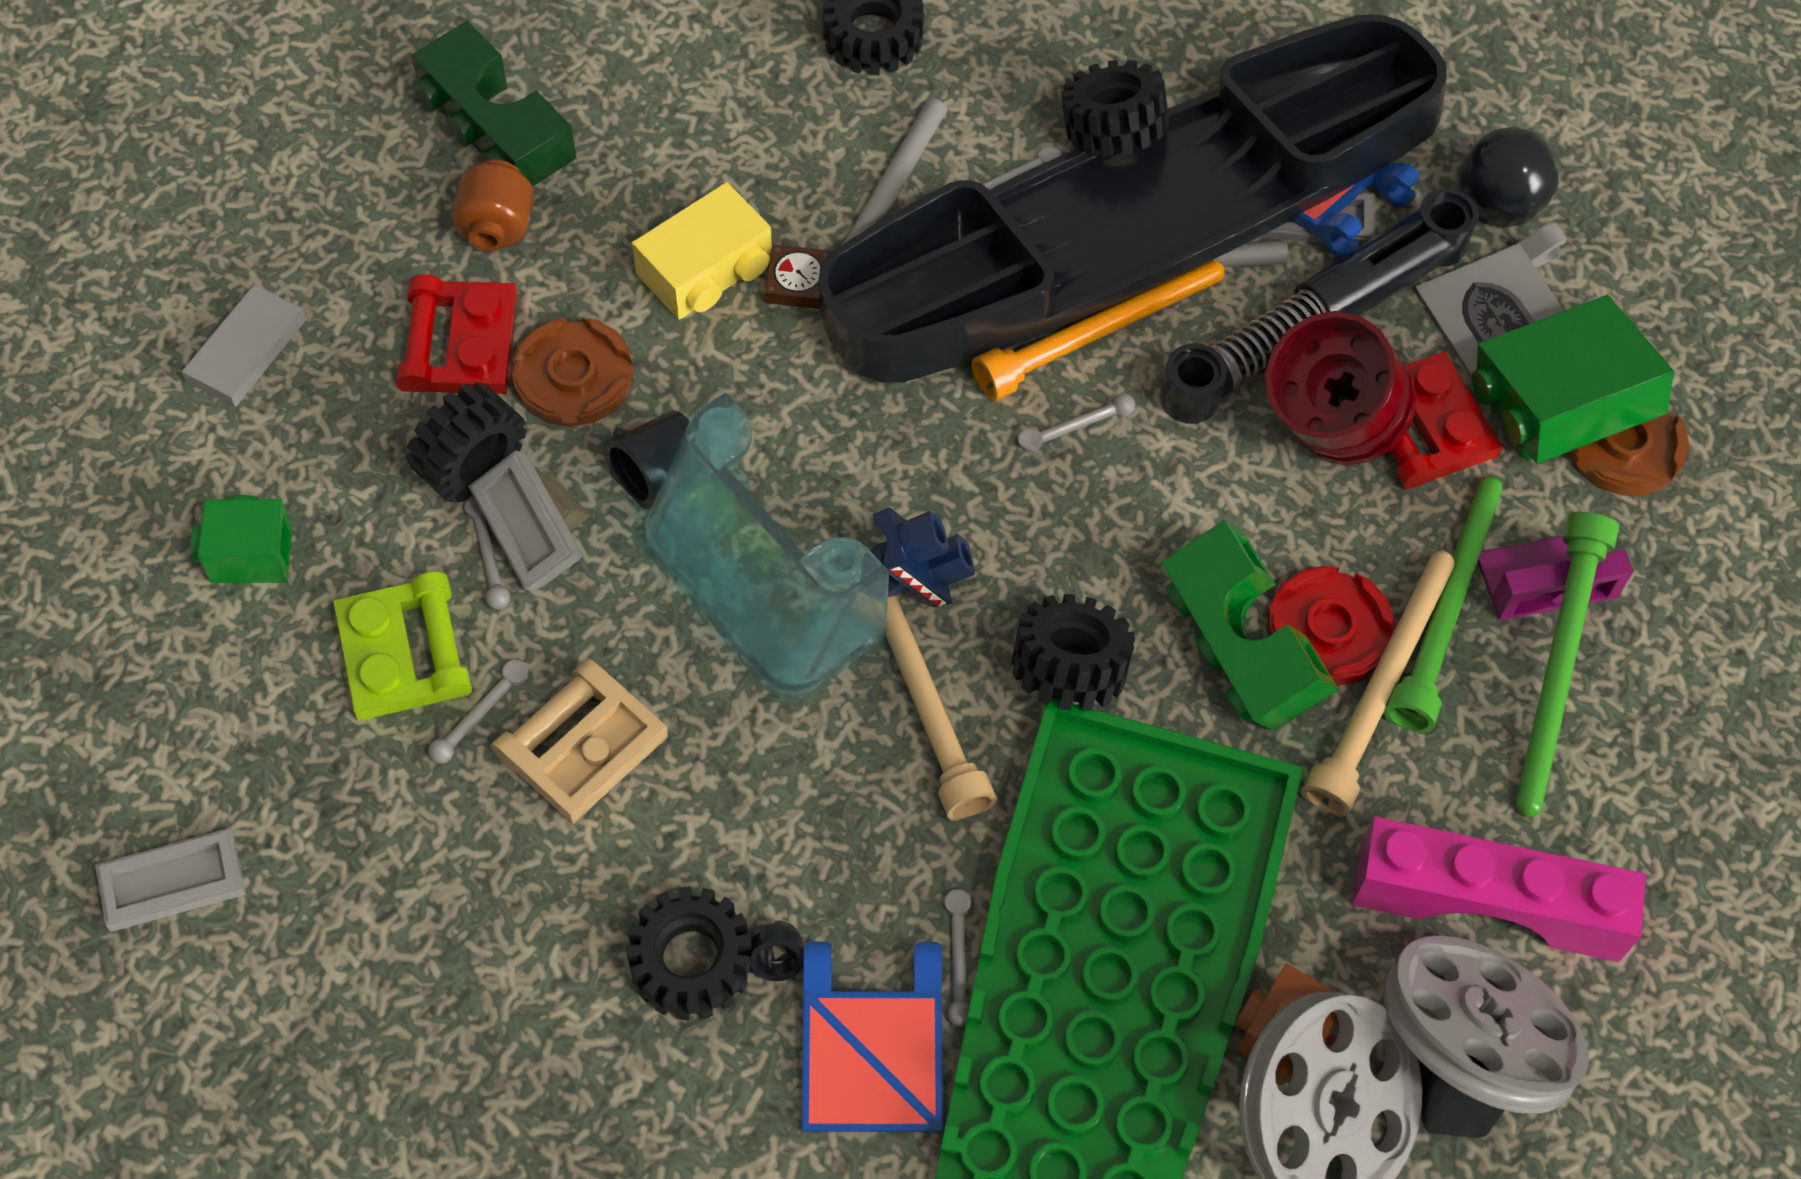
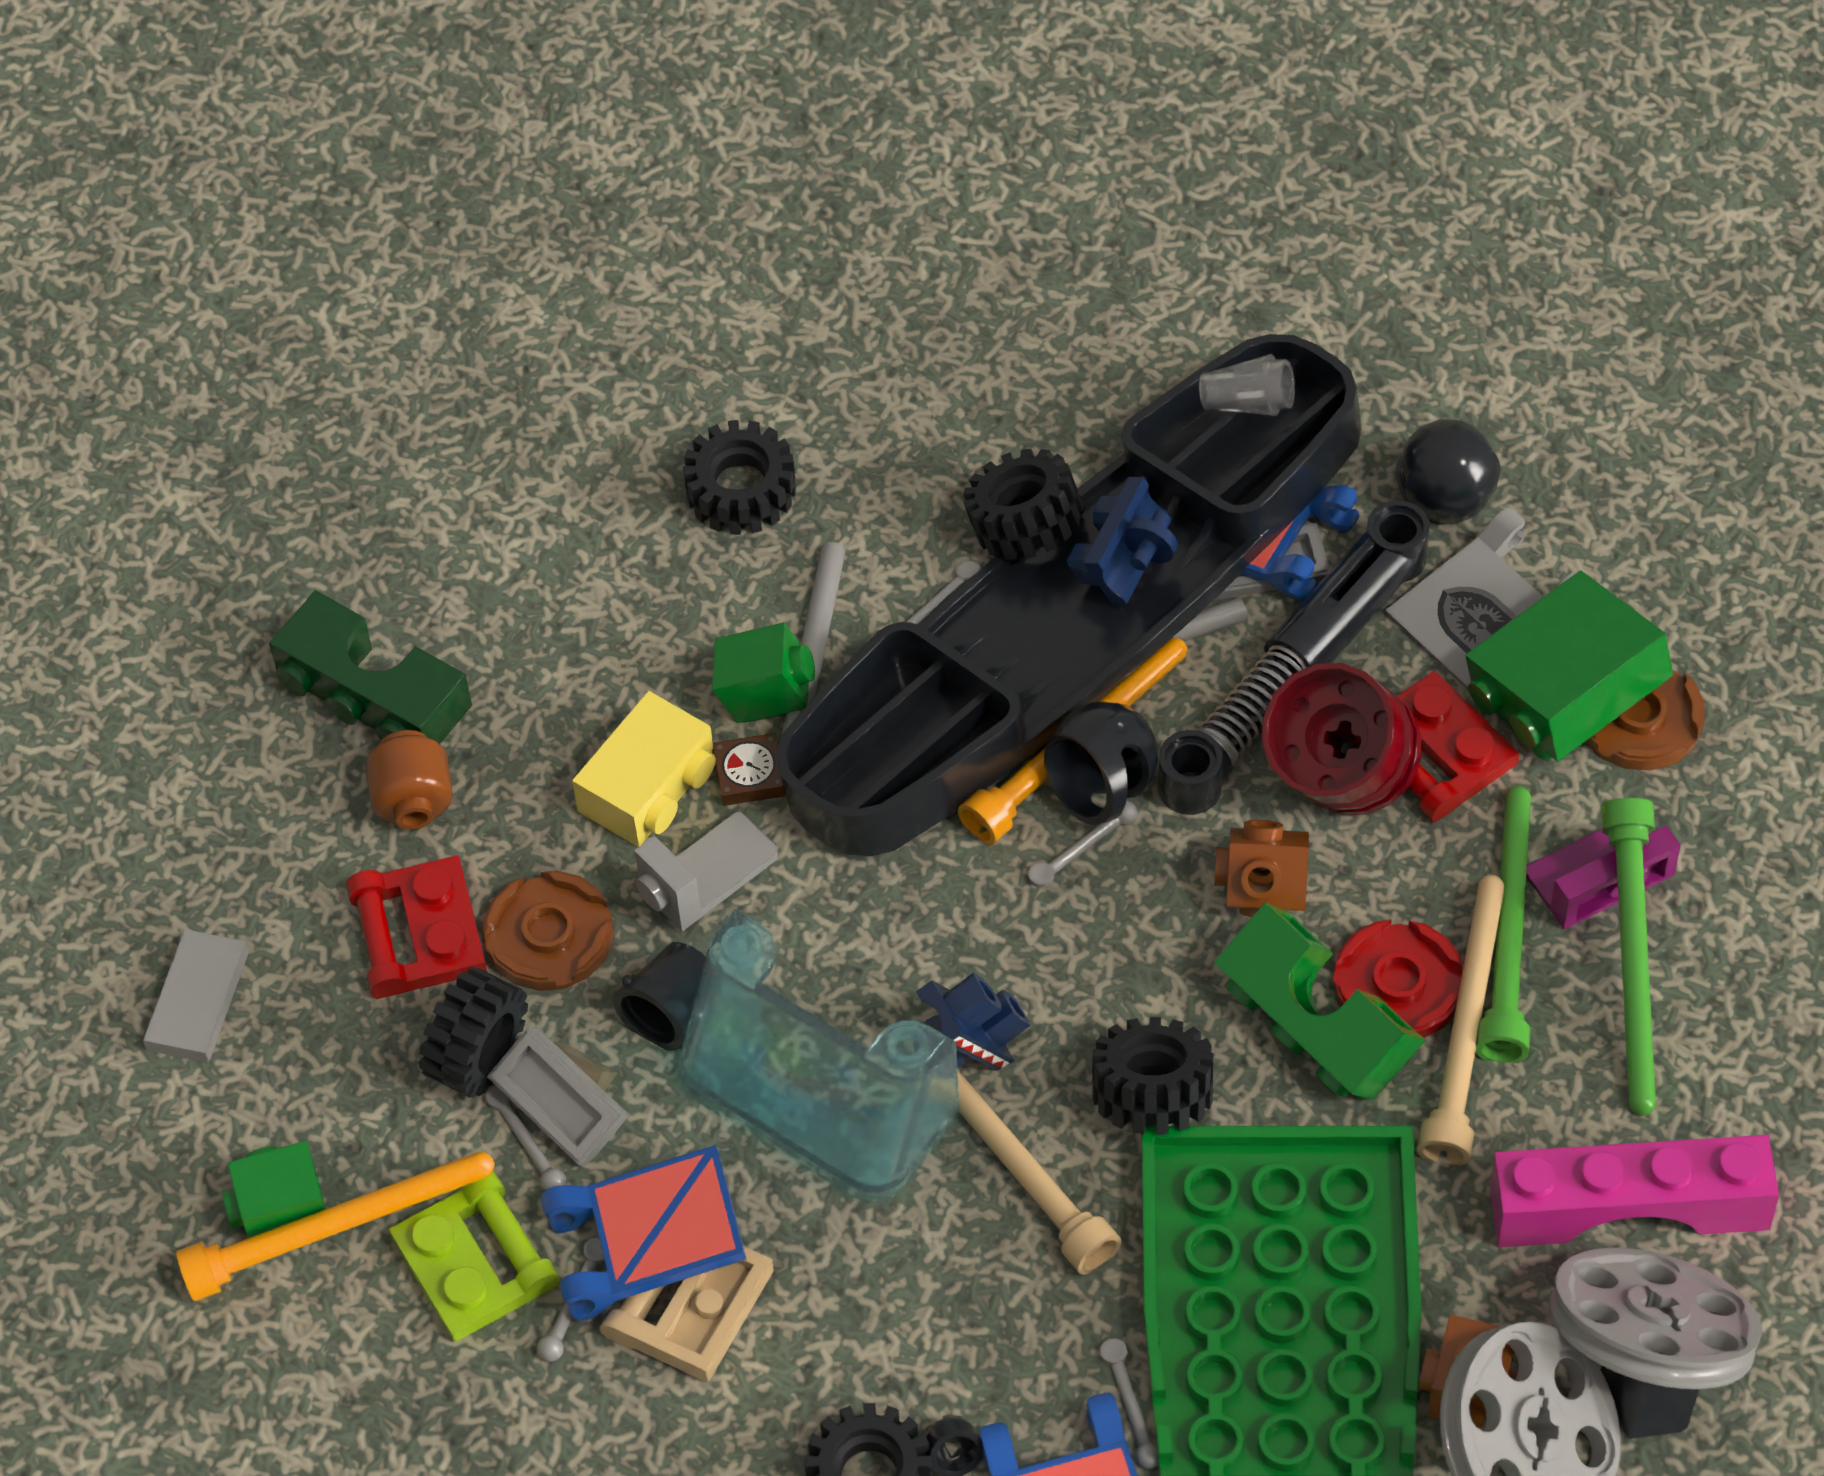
camera: 10 degrees left, 5 degrees down
(158, 591) = (212, 1266): none -> light orange piece
(566, 667) = (651, 1228): none -> flag
(725, 357) = (705, 872): none -> light grey bracket
(834, 193) = (762, 673): none -> green brick
(1114, 343) = (1100, 751): none -> black helmet
(1201, 158) = (1129, 538): none -> dark blue hips
(1246, 471) = (1267, 846): none -> dark orange brick
(1350, 54) = (1250, 387): none -> clear cone

